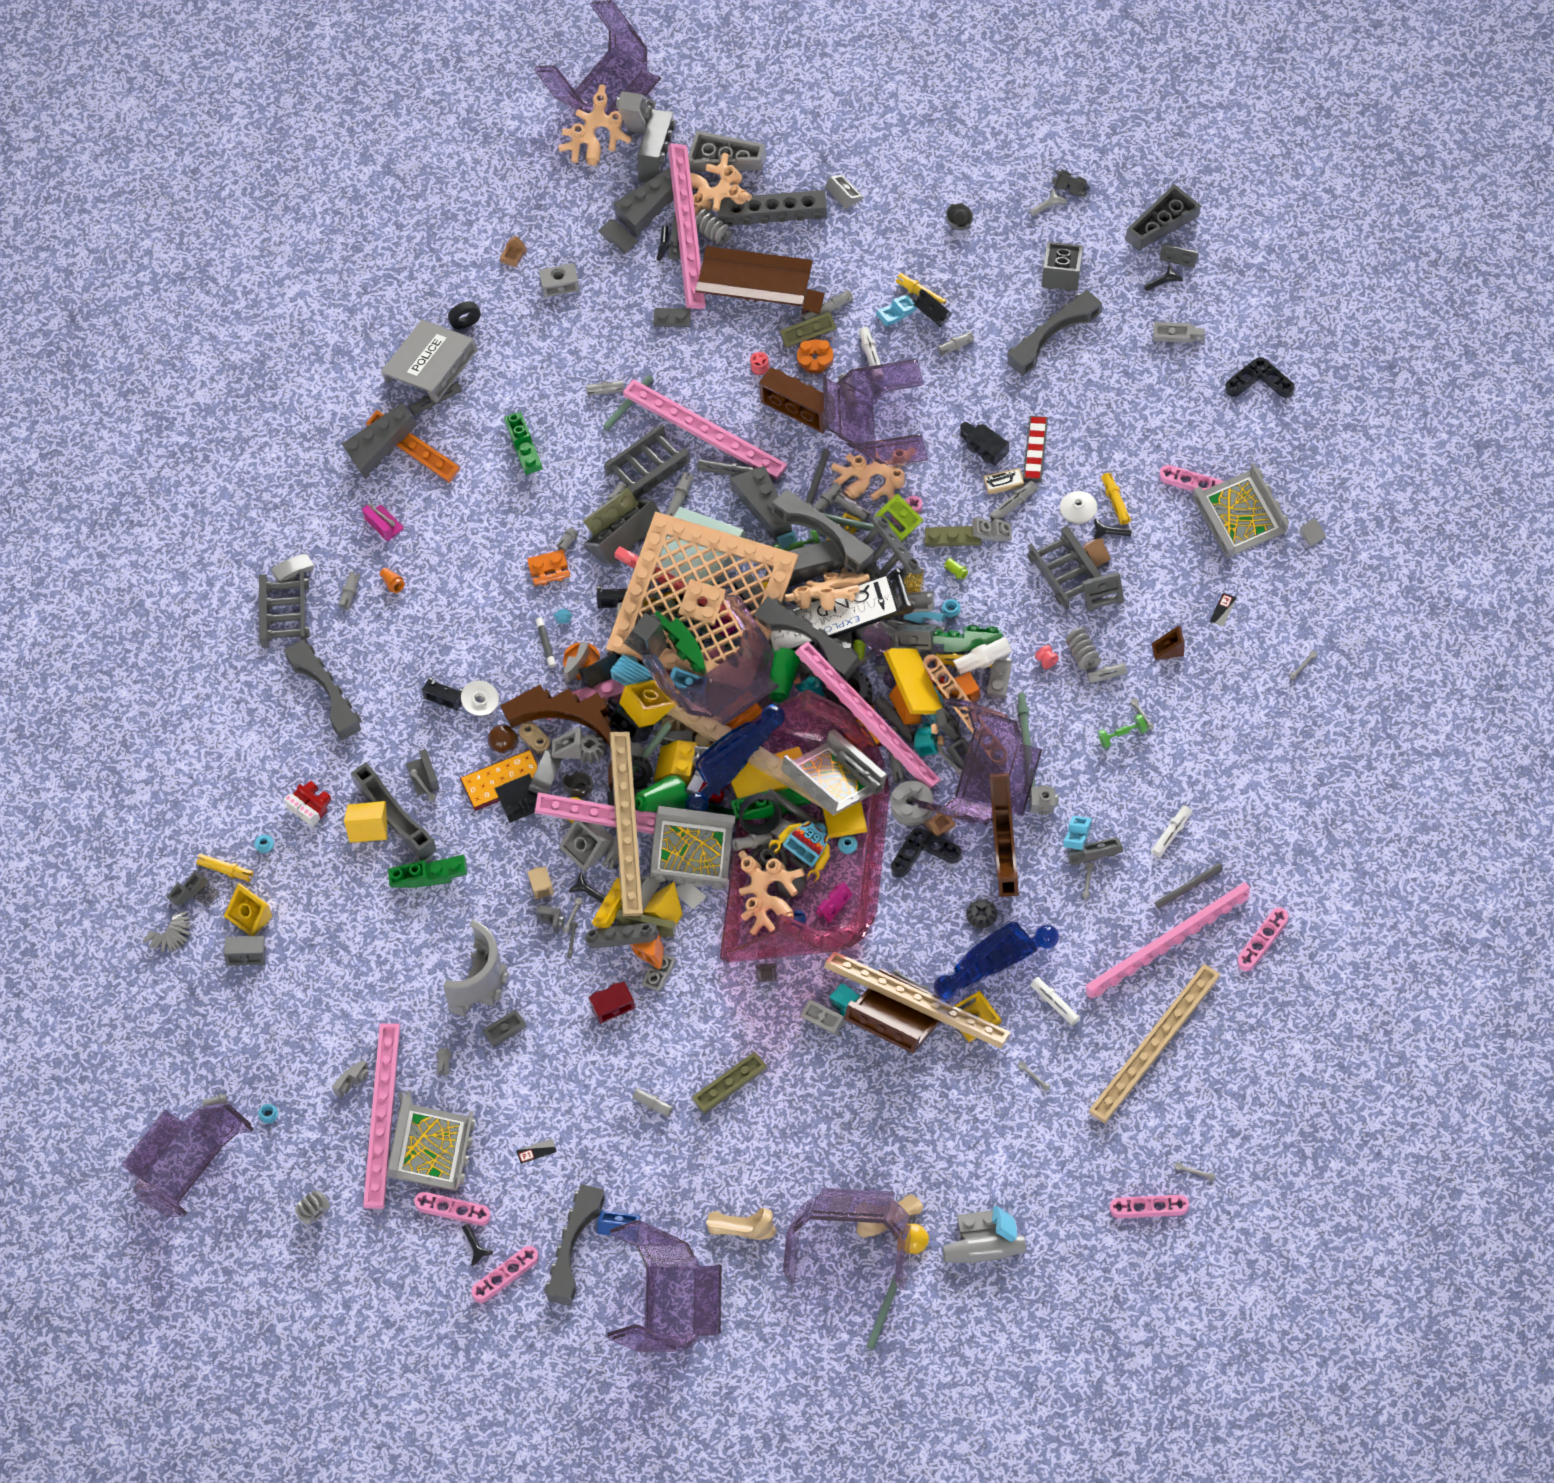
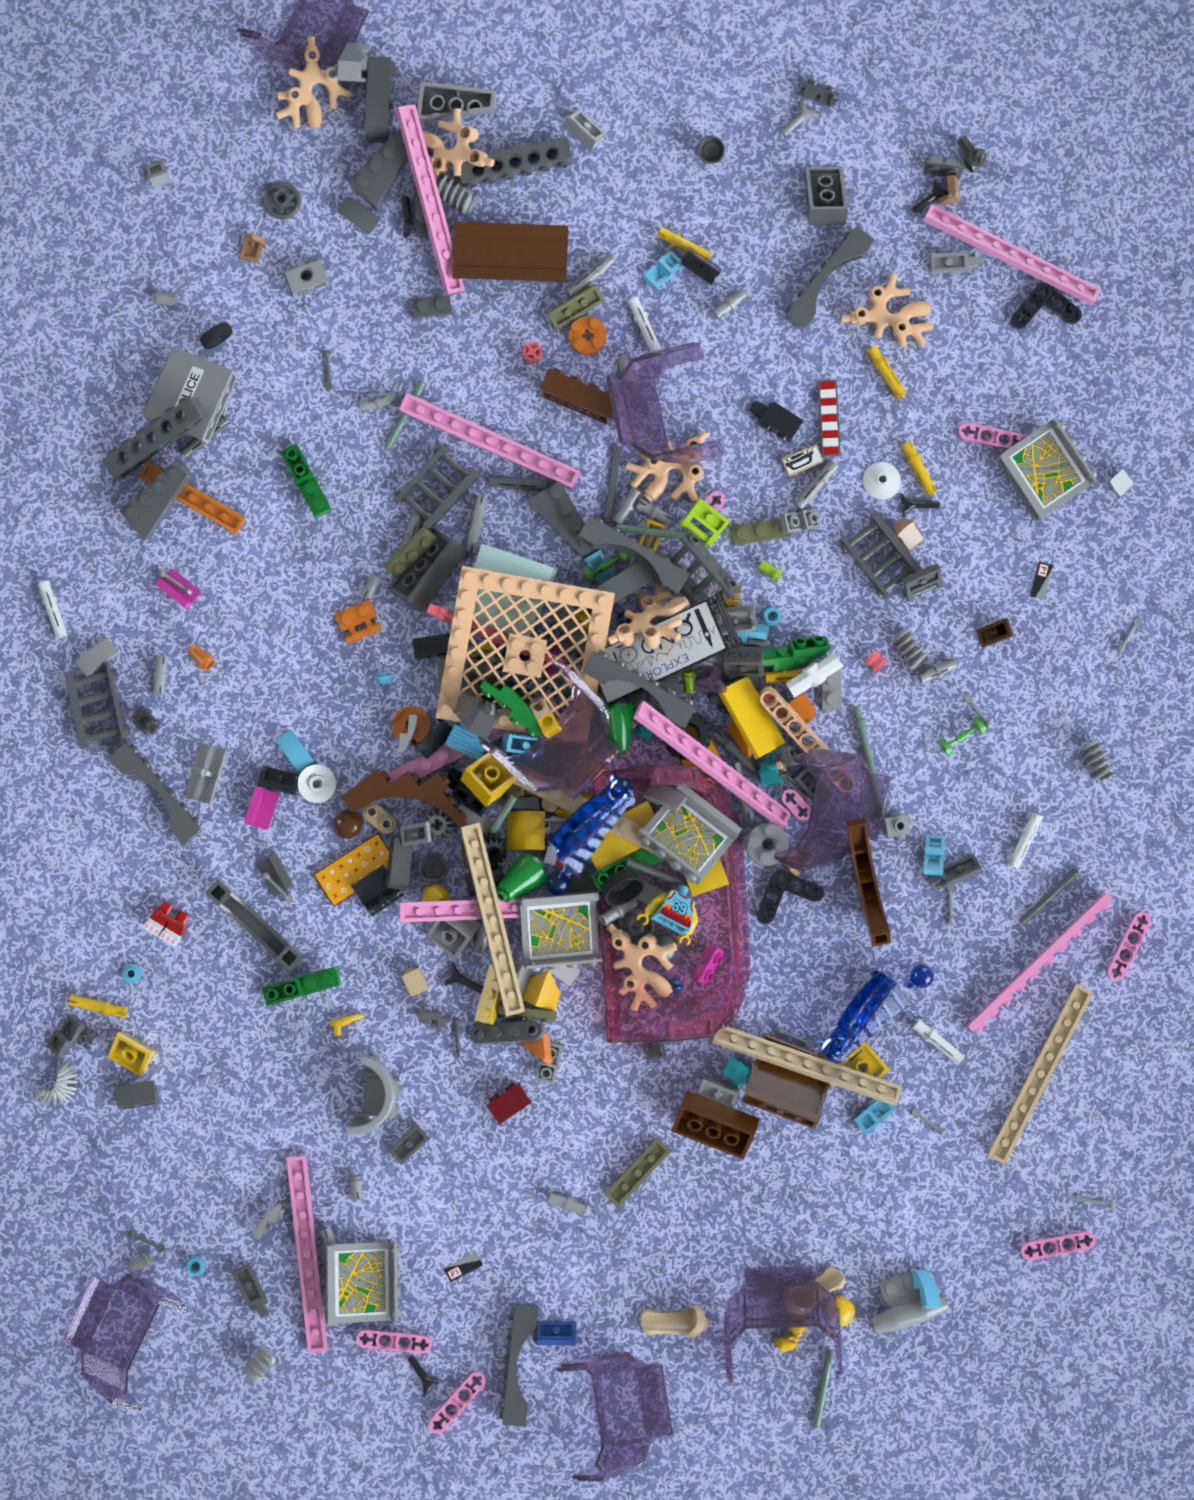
camera: 15 degrees left, 25 degrees up
(237, 1094) = (160, 1248): none -> dark grey hinge
(257, 510) = (44, 588): none -> white pin
(319, 1140) = (251, 1289): none -> dark grey hinge
(326, 626) = (139, 718): none -> clear smoke brick
(366, 822) = (229, 938): yellow slope -> none
(373, 678) = (206, 773): none -> light grey shield
(388, 386) = (194, 415): none -> dark grey brick
(421, 714) = (261, 808): none -> dark pink panel
(422, 283) = (164, 298): none -> light grey pin
(438, 186) = (158, 174): none -> light grey slope
(464, 668) = (295, 751): none -> medium azure slope
(464, 910) = (337, 1023): none -> yellow bar
(545, 642) = (370, 707): dark grey bar -> none
(549, 215) = (282, 194): none -> dark grey piece
(561, 371) = (328, 385): none -> dark grey hinge
(578, 901) = (456, 994): light grey hinge -> none
(712, 656) = (545, 718): none -> leg
(813, 301) = (576, 274): reddish brown panel -> none
(814, 1041) = (715, 1124): none -> reddish brown brick
(817, 741) = (666, 796): none -> light grey slope
(847, 849) = (711, 904): medium azure plate -> none
(854, 1260) = (790, 1341): none -> yellow arm
(873, 785) = (712, 827): dark grey pin -> none
(944, 776) = (792, 808): none -> bright pink beam
(980, 1061) = (873, 1115): none -> medium azure slope
(981, 921) = (852, 945): dark grey gear -> none
(1094, 409) = (881, 364): none -> yellow pin
(1100, 371) = (882, 318): none -> light nougat plant
(1163, 217) = (926, 120): dark grey wedge -> none
(1184, 277) = (953, 191): none -> medium nougat tile
(1210, 247) = (974, 157): none -> dark grey axle
(1234, 331) = (1012, 255): none -> bright pink plate
(1254, 766) = (1098, 761): none -> light grey piece

